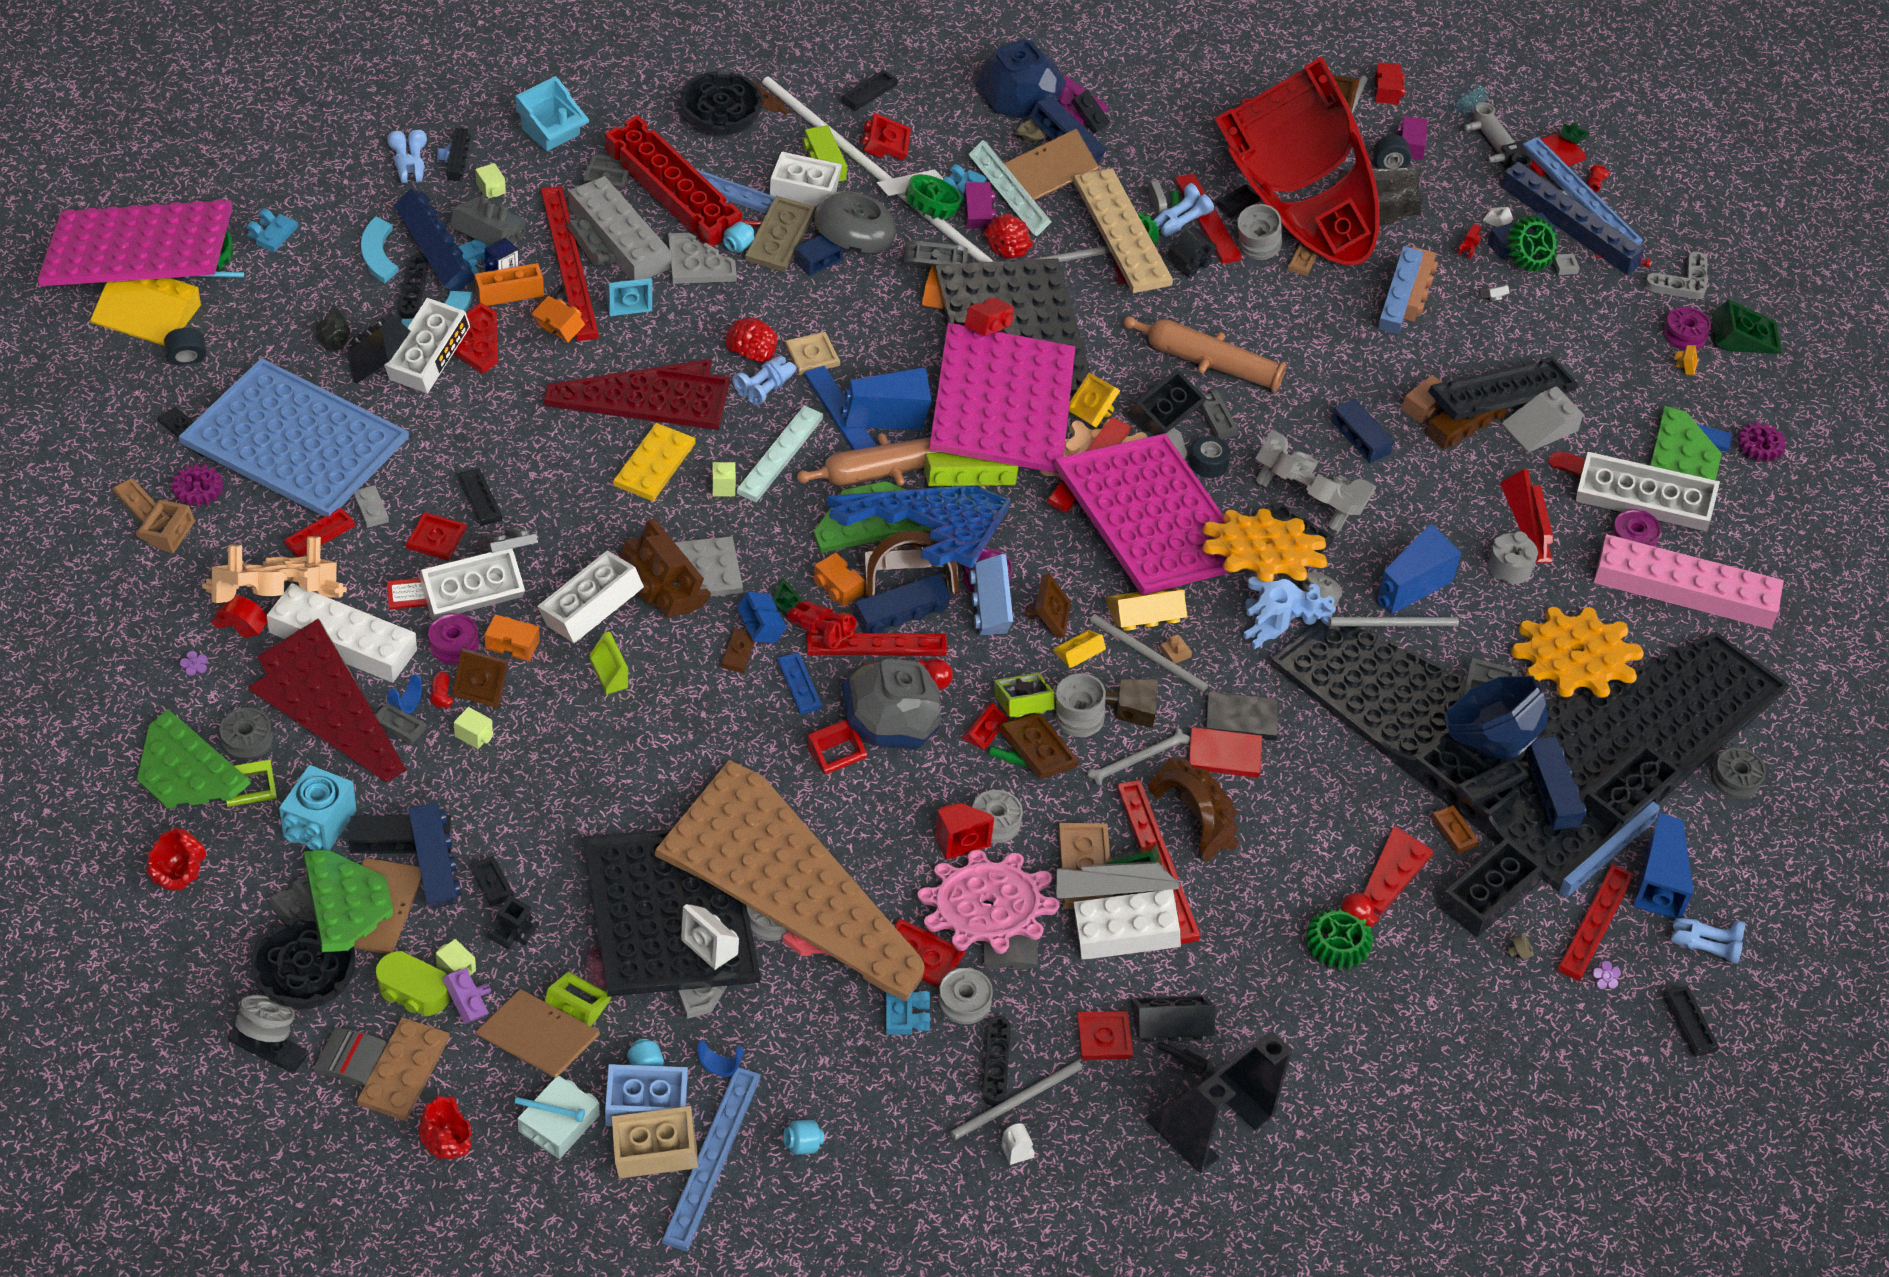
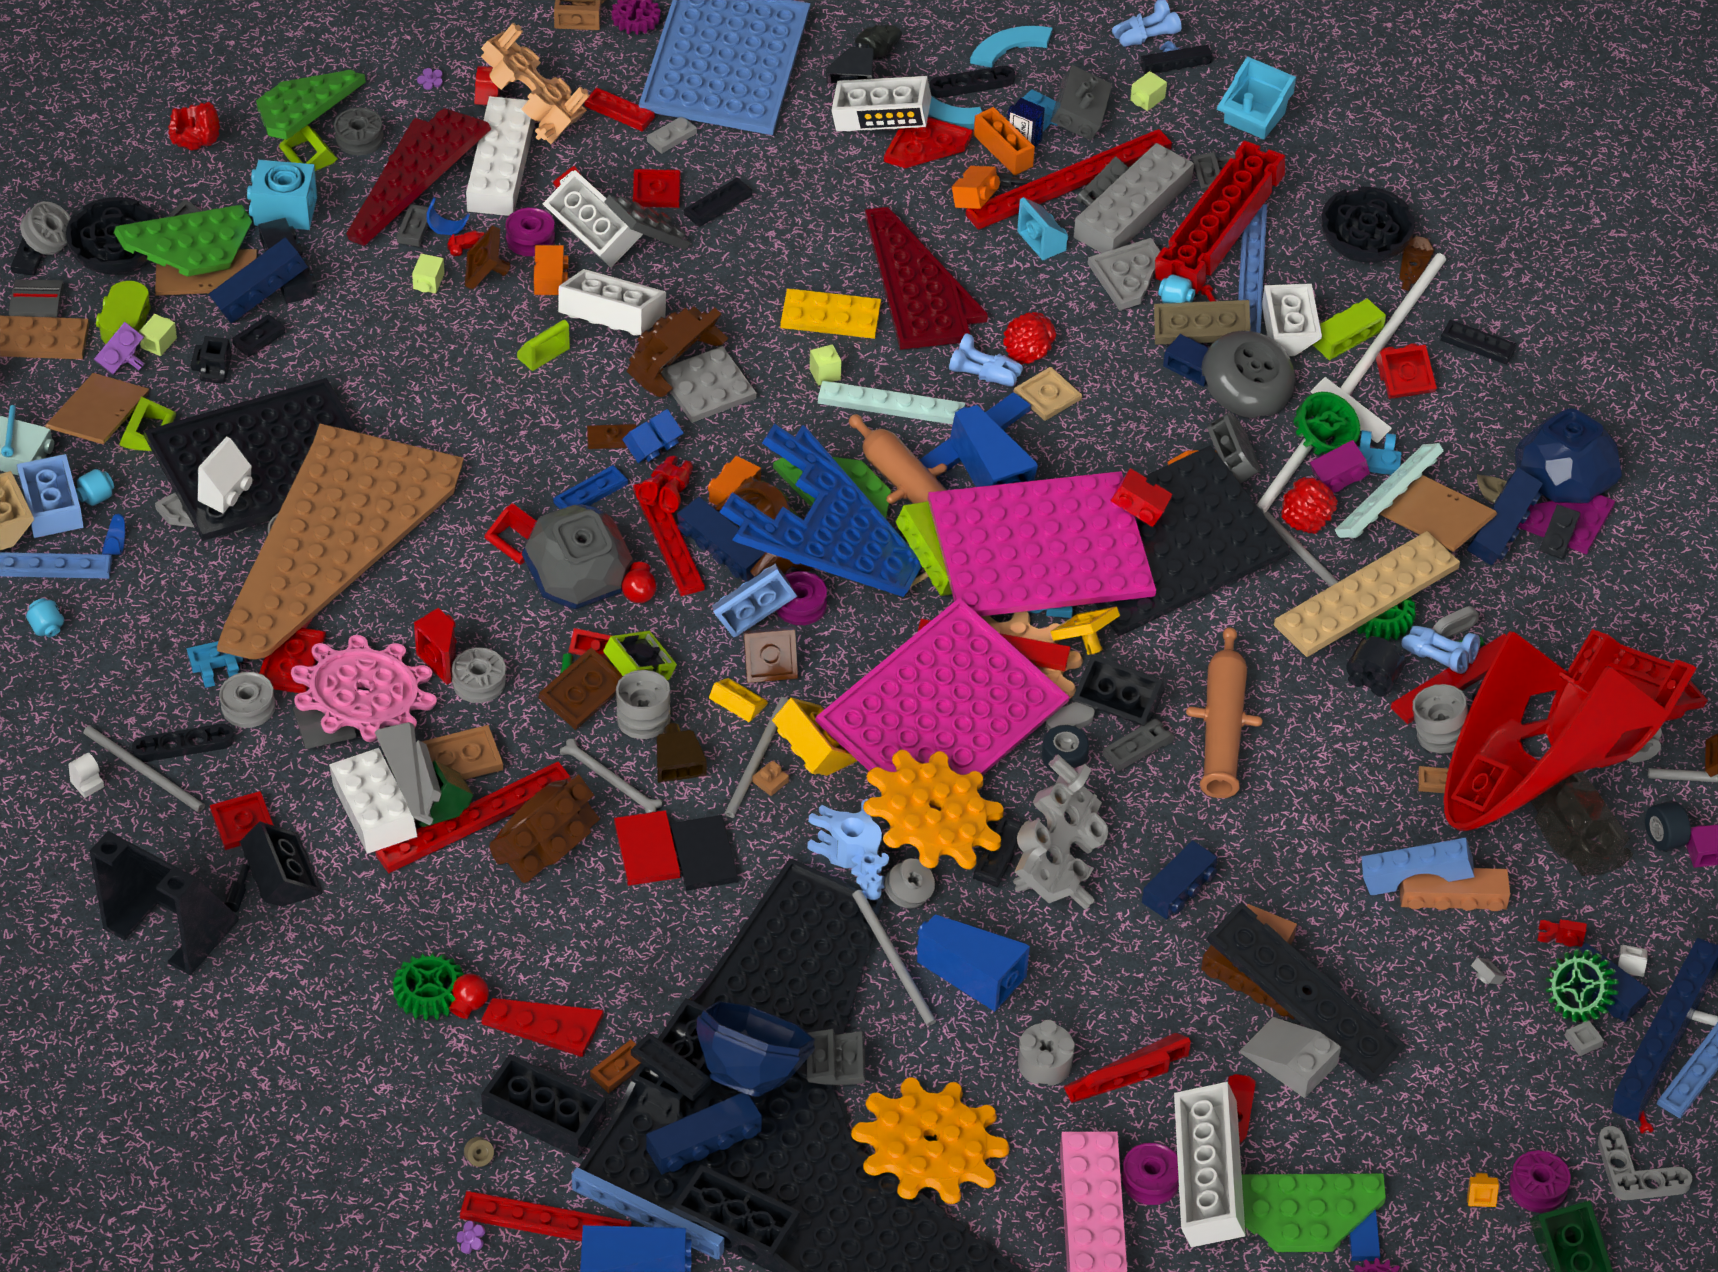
camera: 75 degrees right, 0 degrees up
(434, 240) = (1036, 71): dark blue brick -> none
(786, 597) = (696, 453): dark green piece -> none

